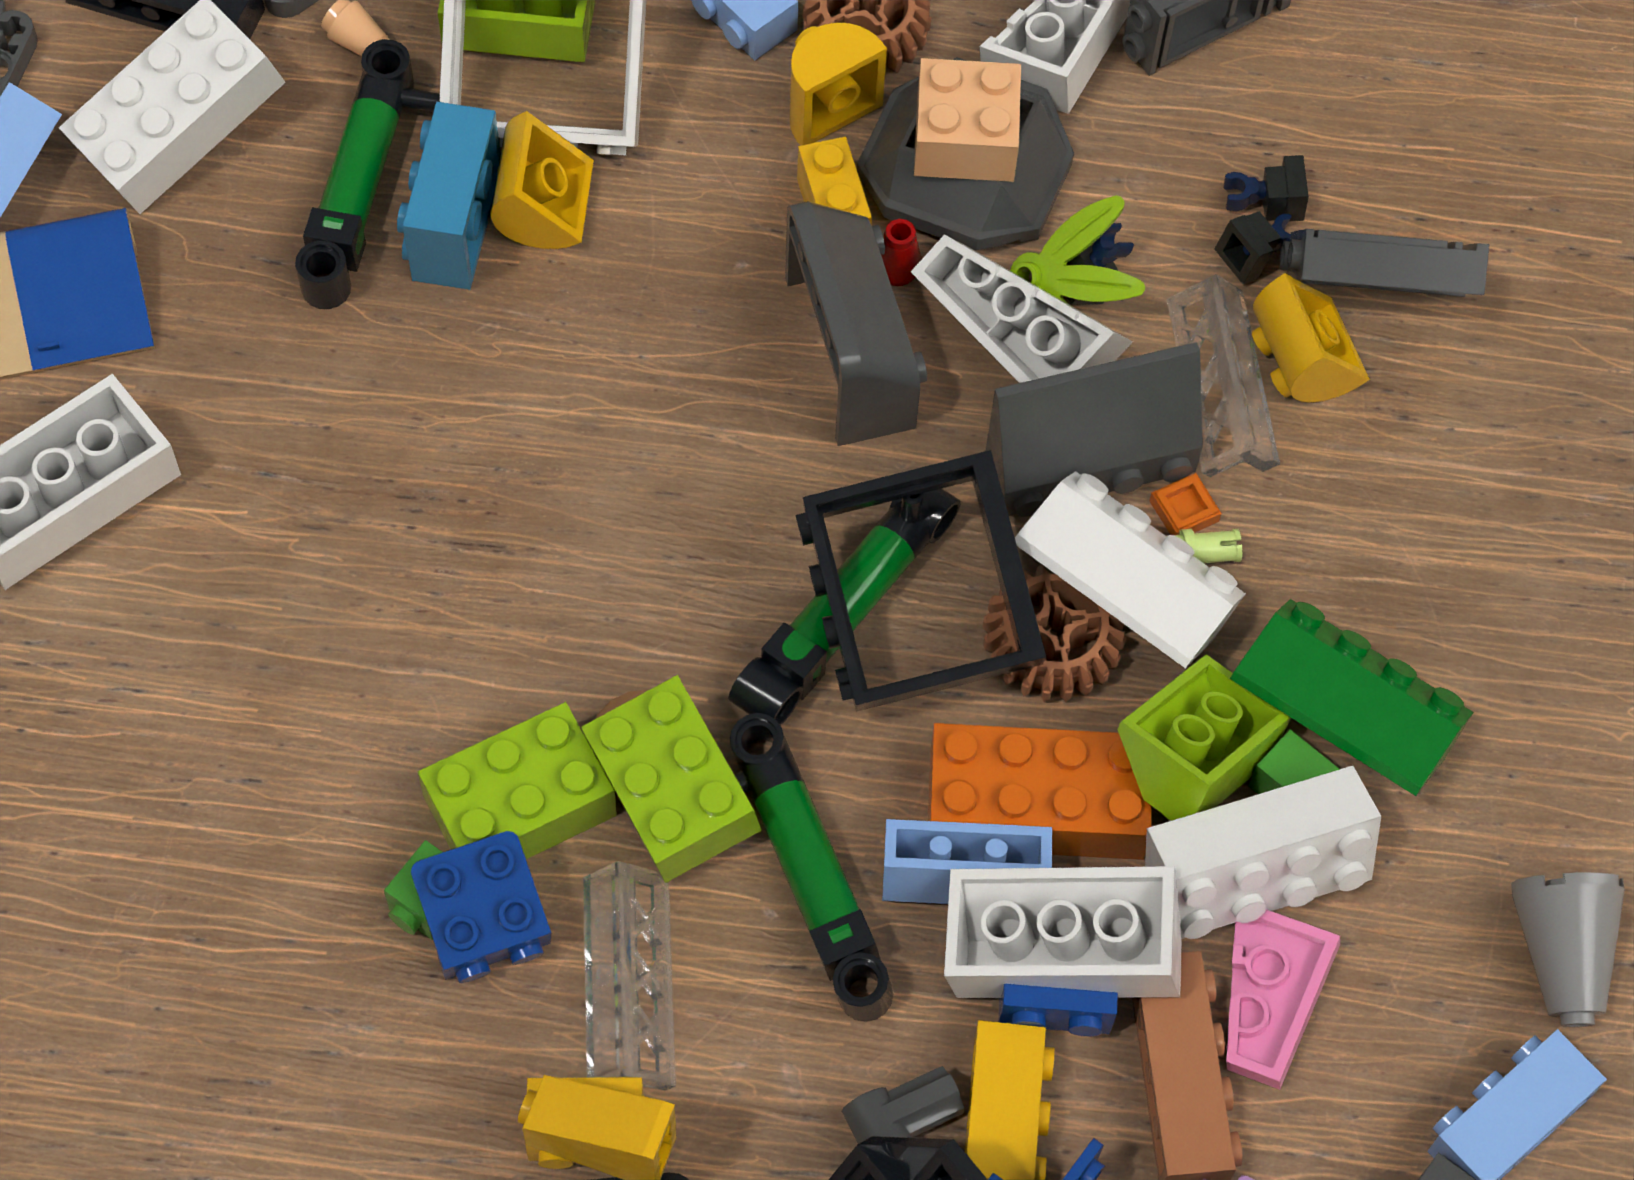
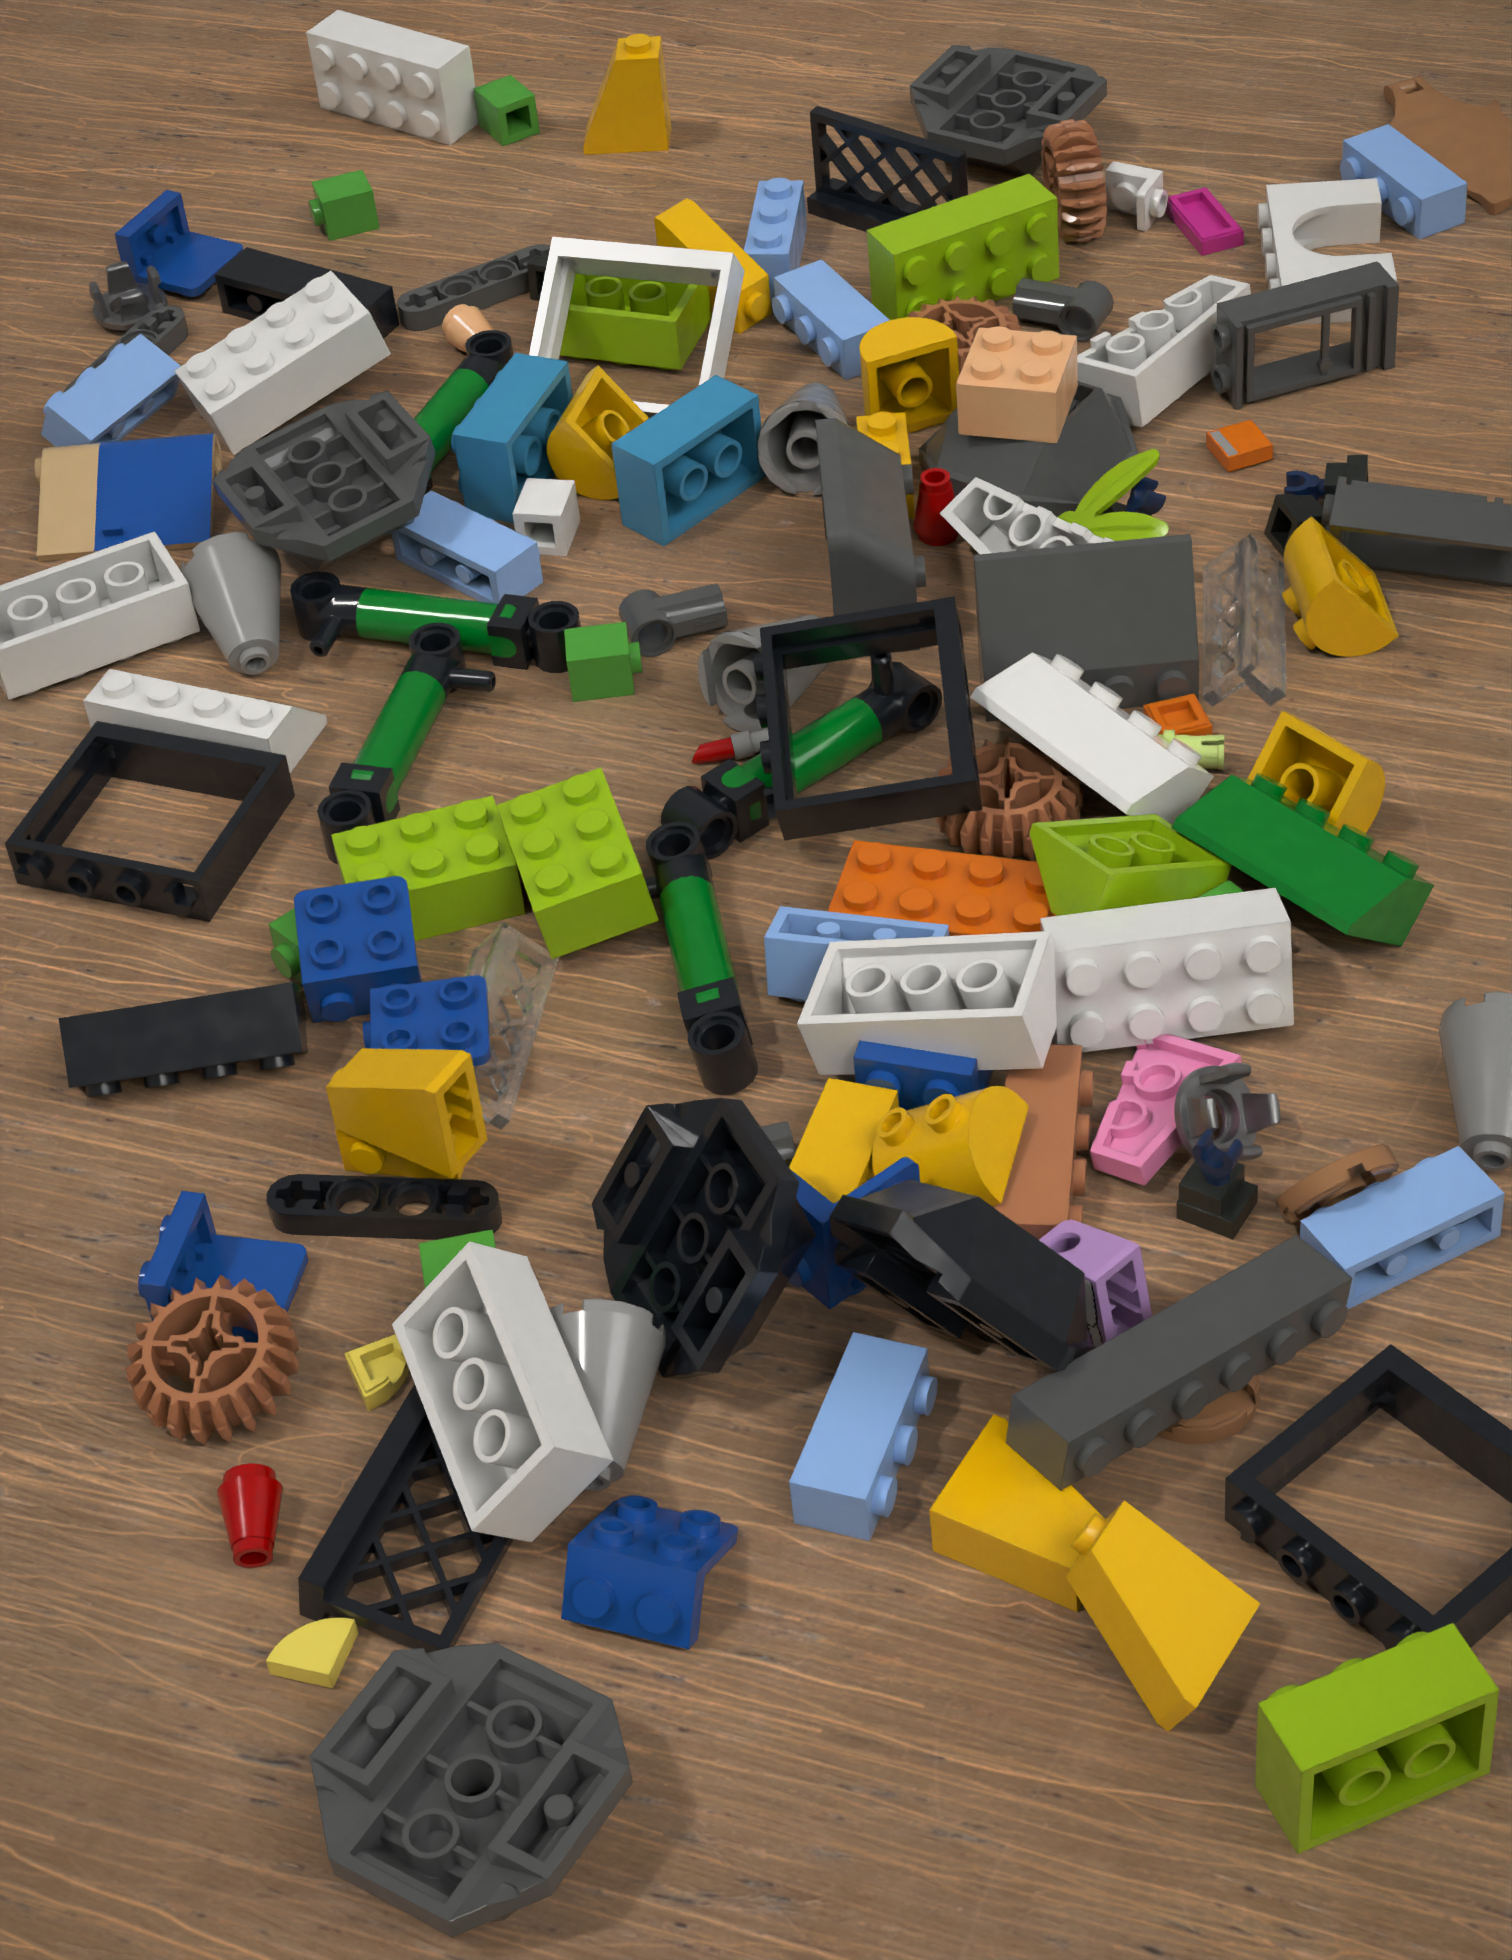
camera: 20 degrees right, 20 degrees down
(214, 668) = (163, 761): none -> black window
(223, 451) = (238, 598): none -> light grey cone
(226, 609) = (203, 714): none -> white slope
(281, 255) = (331, 480): none -> dark grey piece
(332, 1028) = (184, 1036): none -> black slope
(425, 679) = (369, 787): none -> piece
(434, 345) = (468, 551): none -> light blue brick
(502, 453) = (508, 631): none -> piece
(505, 291) = (548, 514): none -> white brick
(580, 1009) = (432, 1016): none -> blue bracket
(614, 488) = (601, 661): none -> bright green brick
(639, 213) = (688, 460): none -> dark azure brick
(657, 425) = (663, 619): none -> dark grey piece
(750, 166) = (790, 440): none -> light grey cone
(773, 488) = (730, 679): none -> light grey cone
(773, 580) = (737, 746): none -> piece
(1111, 1094) = (956, 1141): none -> yellow brick
(1166, 131) = (1239, 445): none -> orange tile
(1343, 588) = (1322, 772): none -> yellow brick
(1346, 1093) = (1215, 1189): none -> pearl dark grey piece
(1352, 997) = (1241, 1110): none -> flat silver piece
(1458, 1086) = (1336, 1182): none -> medium nougat tile

